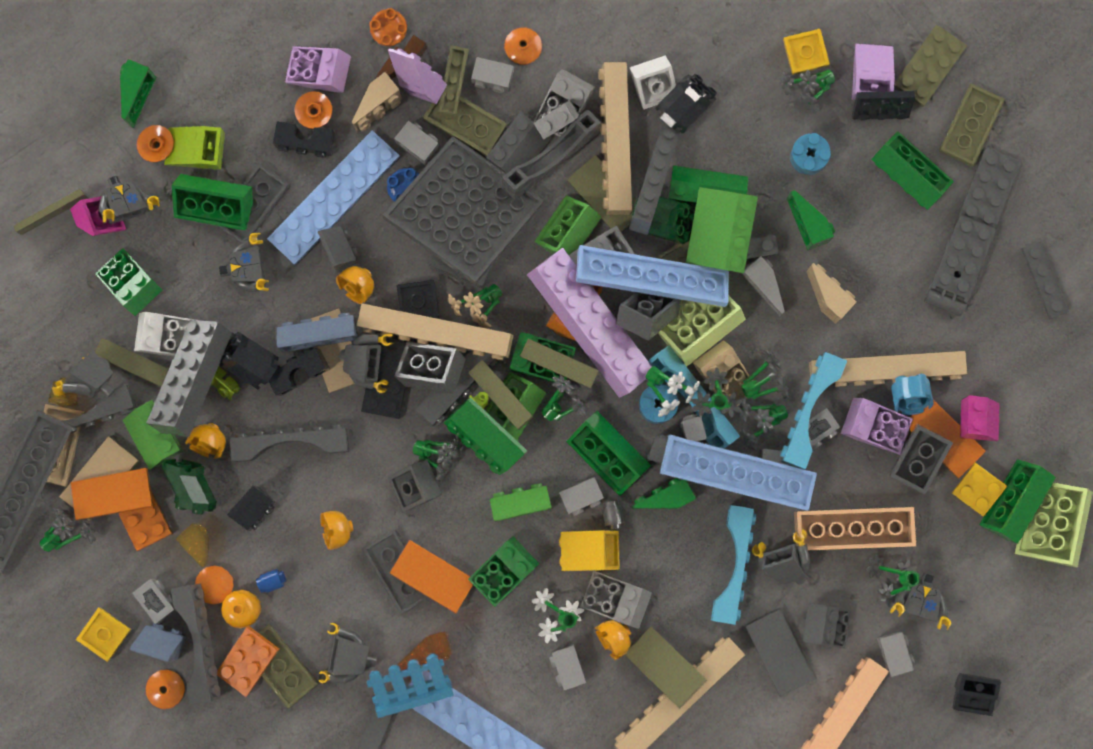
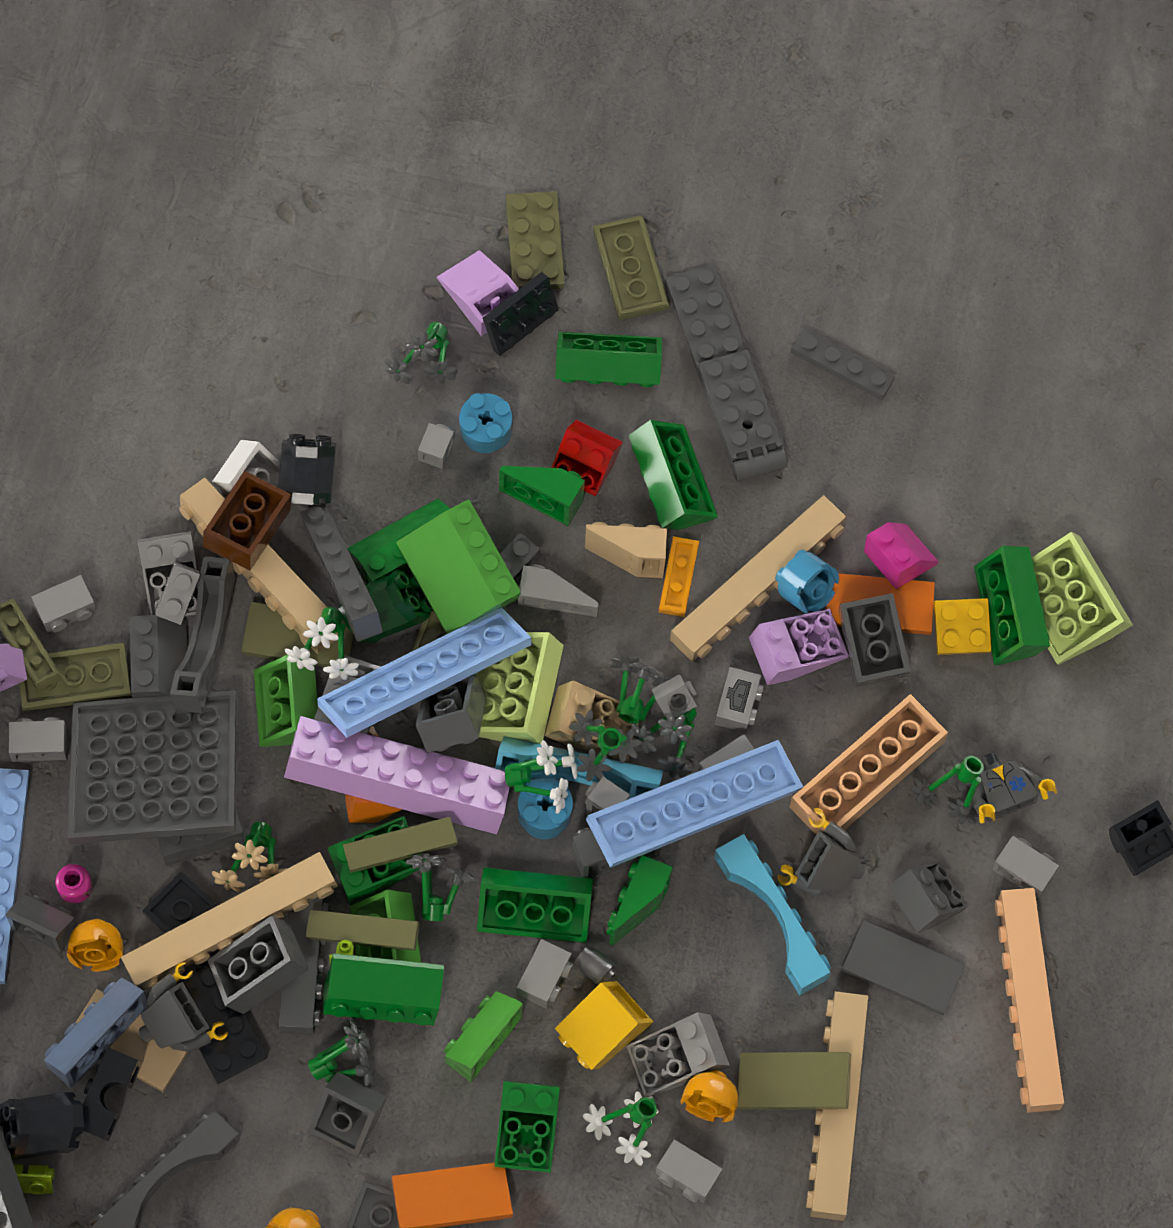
camera: 45 degrees left, 15 degrees down
(369, 245) = (74, 883): none -> dark pink head
(399, 181) = (54, 798): blue dish -> none
(526, 54) = (72, 561): orange dish -> none
(610, 209) = (323, 631): none -> white plant
(626, 108) = (247, 520): none -> reddish brown brick
(772, 144) = (436, 445): none -> light grey brick
(774, 400) = (665, 691): none -> light grey brick
(799, 447) = (735, 726): medium azure arch -> none
(806, 51) = (391, 323): yellow plate -> none
(844, 330) = (678, 576): none -> light orange tile
(850, 218) = (588, 454): none -> red slope
(890, 269) = (672, 475): none -> green slope

